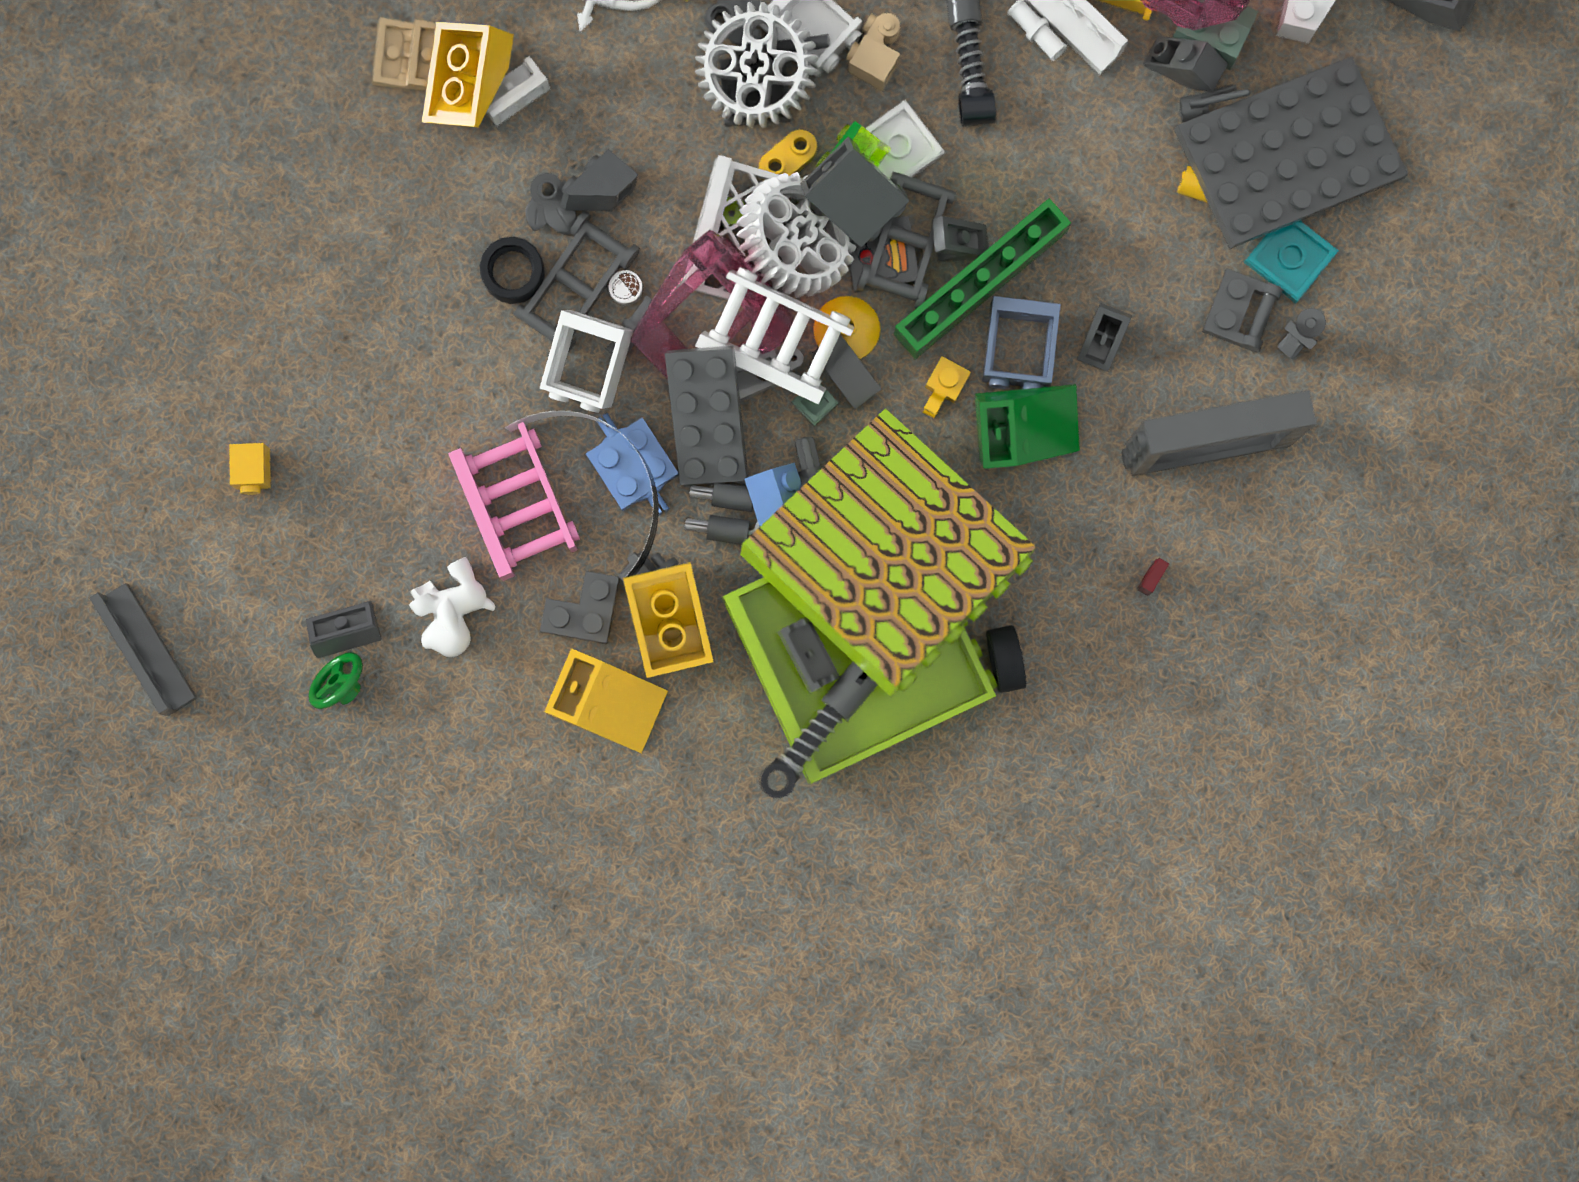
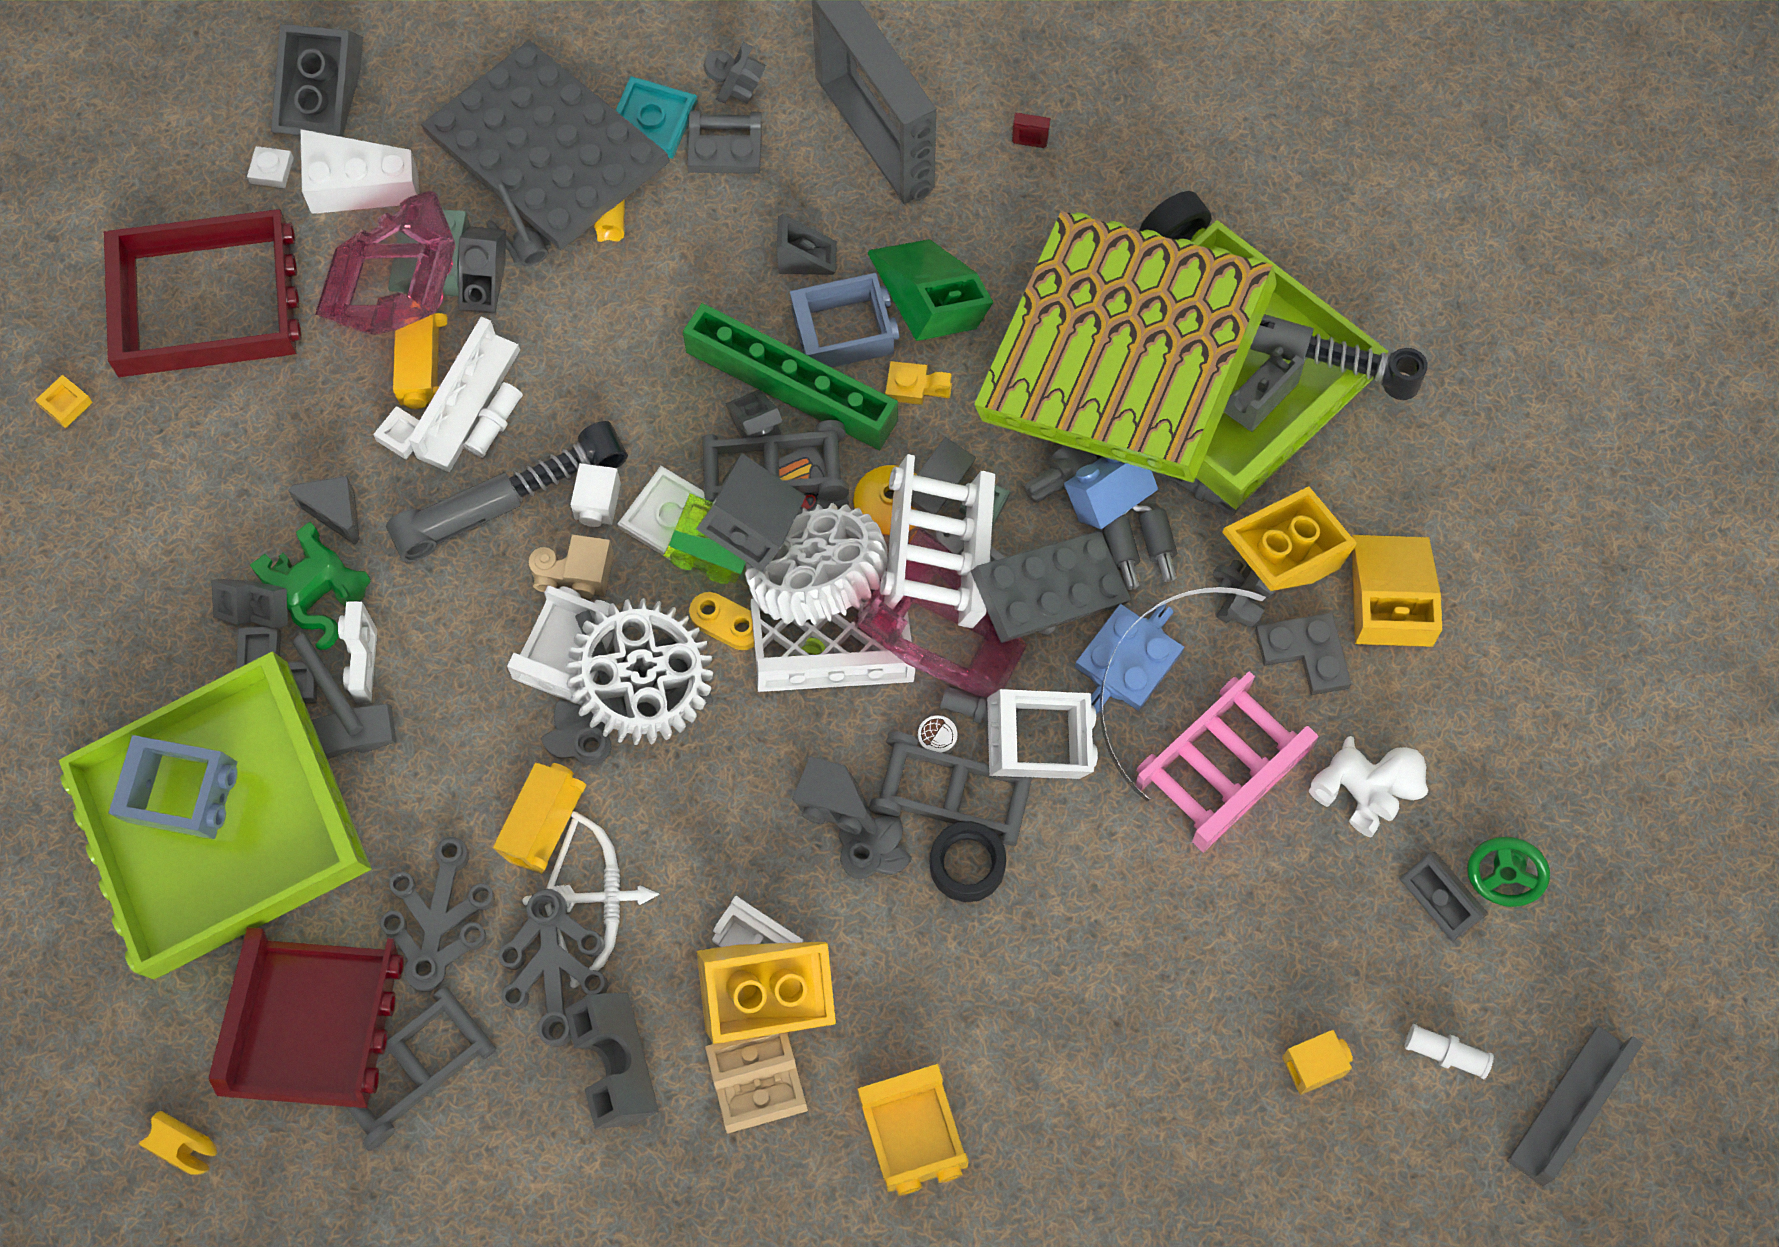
camera: 110 degrees left, 15 degrees down
(221, 574) = (1449, 1051): none -> white pin
(322, 153) = (913, 1130): none -> yellow panel
(934, 88) = (595, 495): none -> white brick

